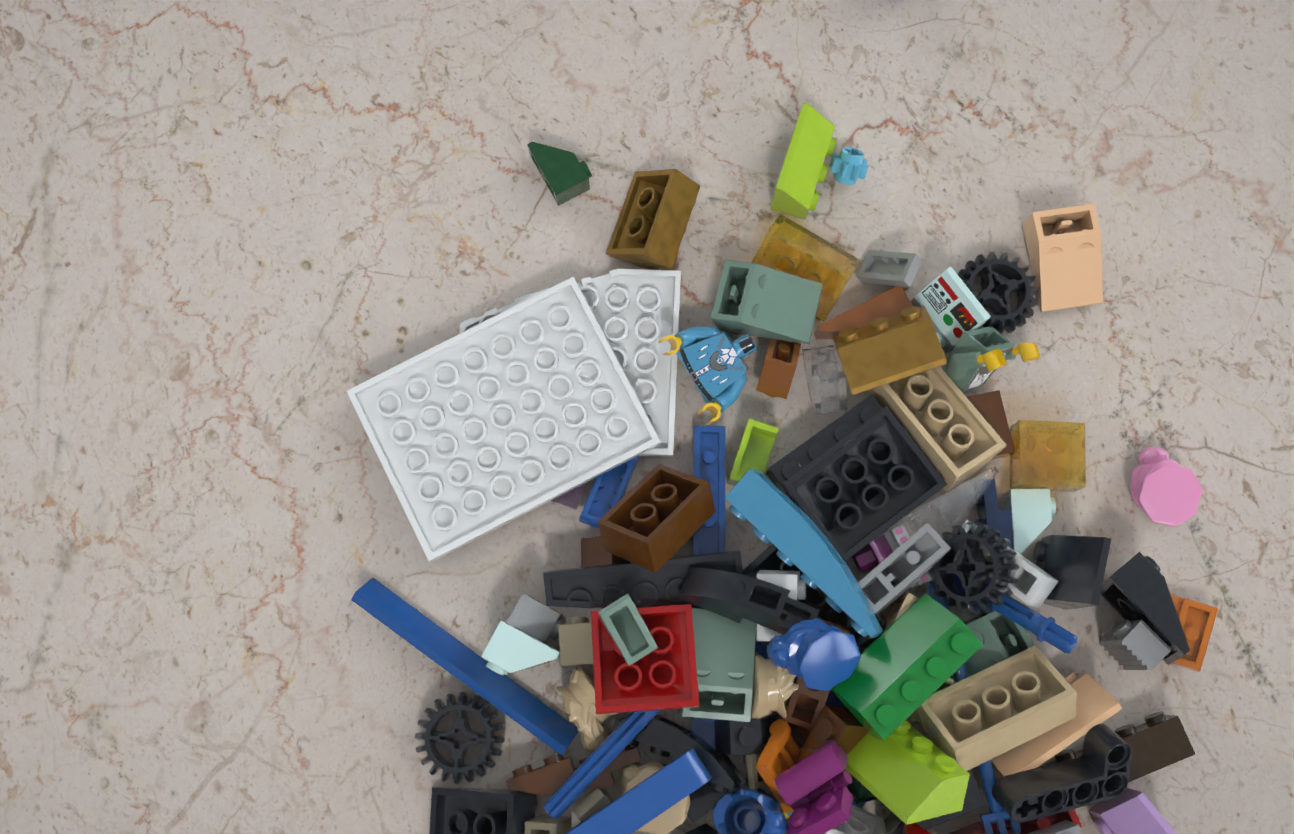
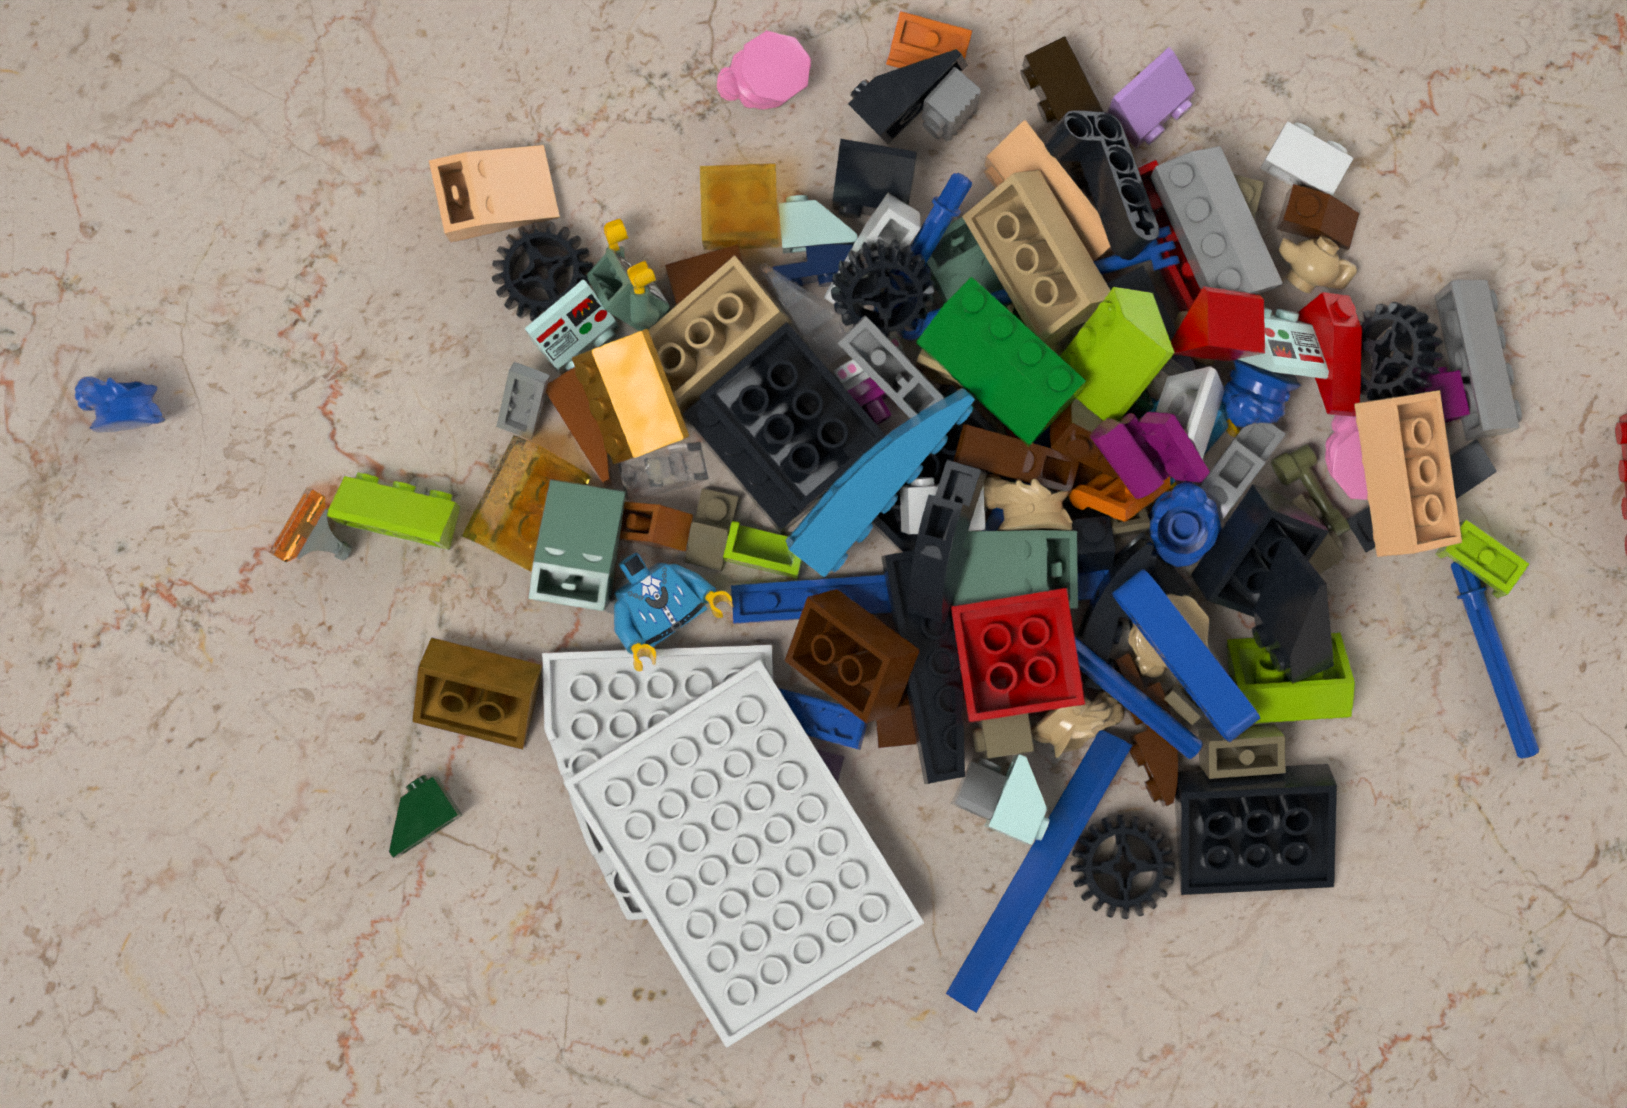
camera: 95 degrees left, 5 degrees up
(627, 629) = (989, 675): sand green slope -> none
(777, 413) = (711, 529): none -> dark tan slope
(789, 99) = (308, 531): none -> clear orange piece
(816, 653) = (997, 461): blue piece -> none
(848, 166) = (392, 456): medium azure gear -> none

